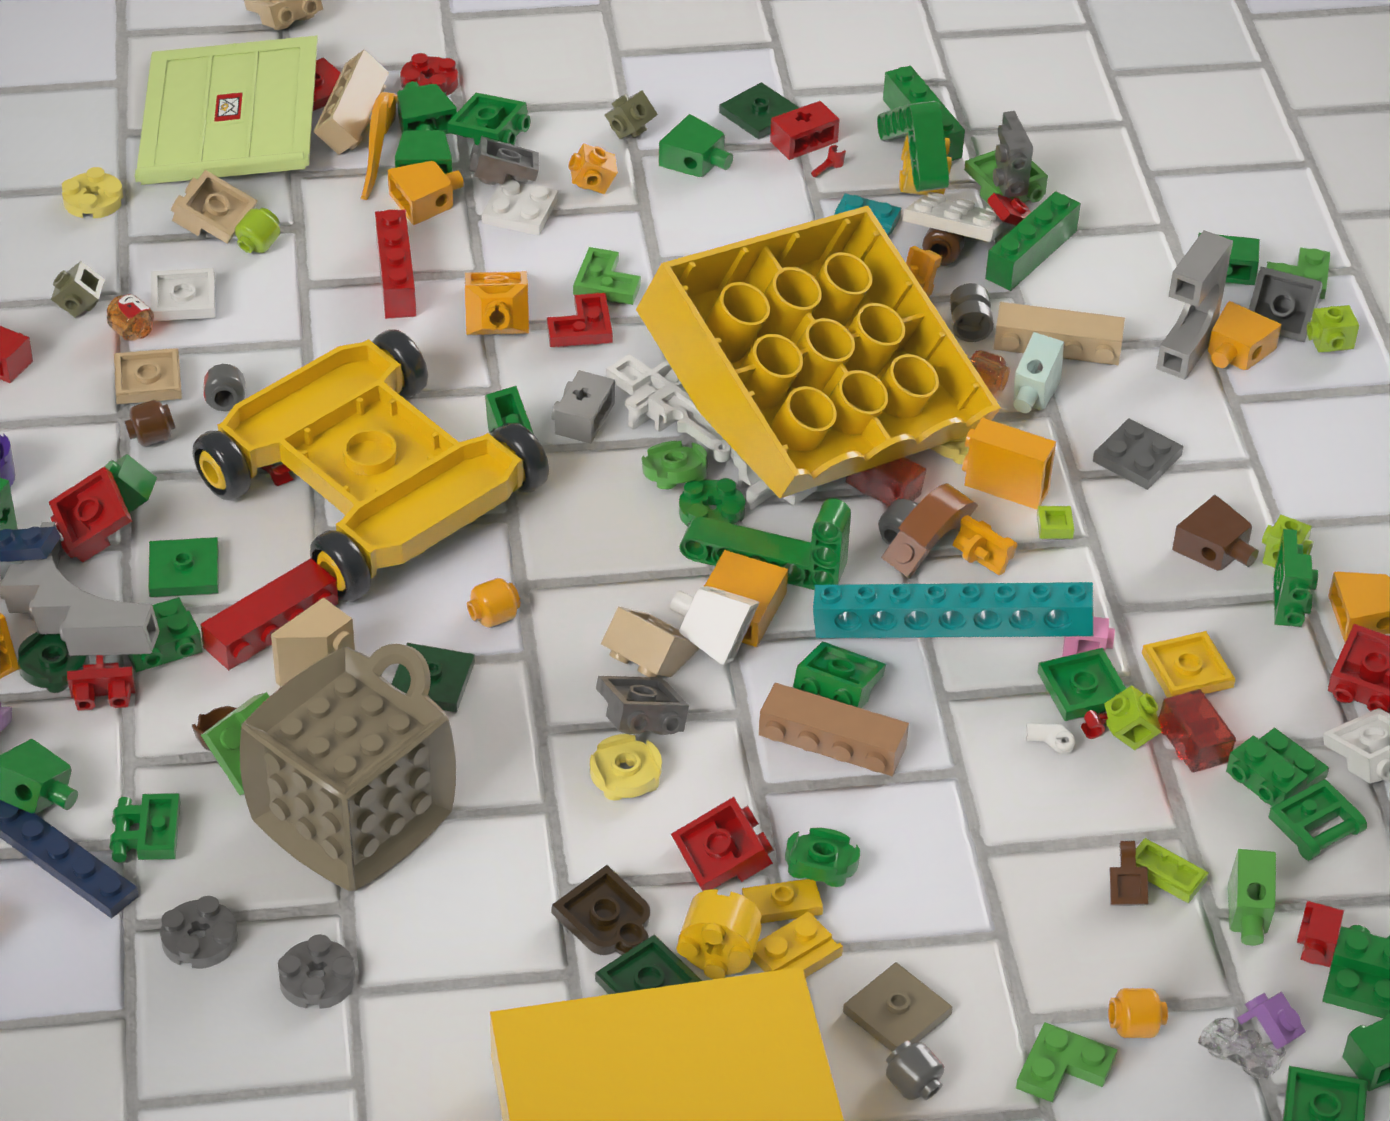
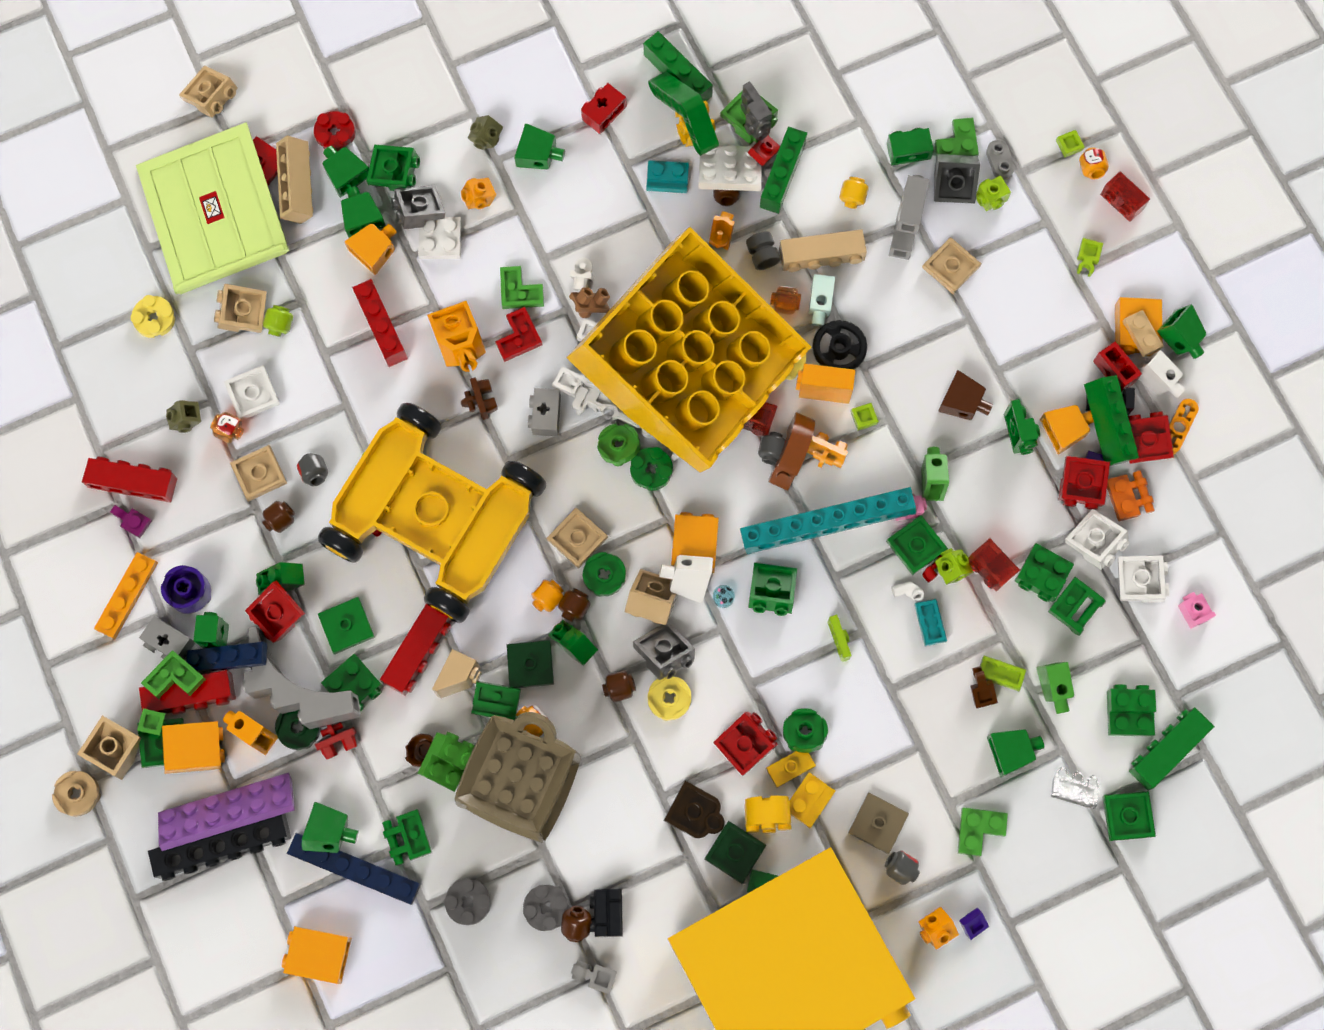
camera: 15 degrees left, 30 degrees up
(354, 995) = (576, 924): none -> reddish brown head
(358, 1084) = (600, 979): none -> light grey plate
(382, 118) = (321, 197): light orange piece -> none
(410, 1000) = (607, 913): none -> black brick
(500, 371) = (485, 406): none -> reddish brown hips
(505, 407) = (505, 444): green slope -> none
(508, 661) = (573, 642): none -> green slope
(529, 619) = (574, 605): none -> reddish brown head
(554, 728) = (619, 686): none -> reddish brown head
(568, 551) = (577, 537): none -> tan plate
(588, 616) = (609, 563): none -> green plate
(755, 108) = (566, 94): dark green plate -> none
(760, 673) = (723, 596): none -> clear light blue tile
(807, 562) = (700, 501): green beam -> none
(833, 729) = (782, 631): medium nougat brick -> none
(834, 159) = (629, 128): red hand -> none
(921, 760) = (840, 638): none -> lime plate
(1050, 424) = (833, 329): none -> black wheel
(1073, 780) = (930, 622): none -> teal plate
(1127, 284) = (854, 192): none -> yellow head
(1137, 1013) = (1013, 787): light orange head -> none
(1138, 453) = (897, 338): dark grey plate -> none
(1142, 597) = (934, 475): none -> bright green torso
(1157, 963) = (1013, 750): none -> green torso
(1188, 665) = (973, 510): yellow plate -> none
(1242, 337) = (937, 218): light orange torso -> none
(1246, 393) = (951, 265): none -> tan plate
(1273, 535) = (1008, 390): lime brick -> none
(1276, 1017) = (1088, 764): medium lavender bracket -> none
(1319, 933) = (1098, 694): red brick -> none
(1361, 301) = (1000, 158): none -> light grey plate

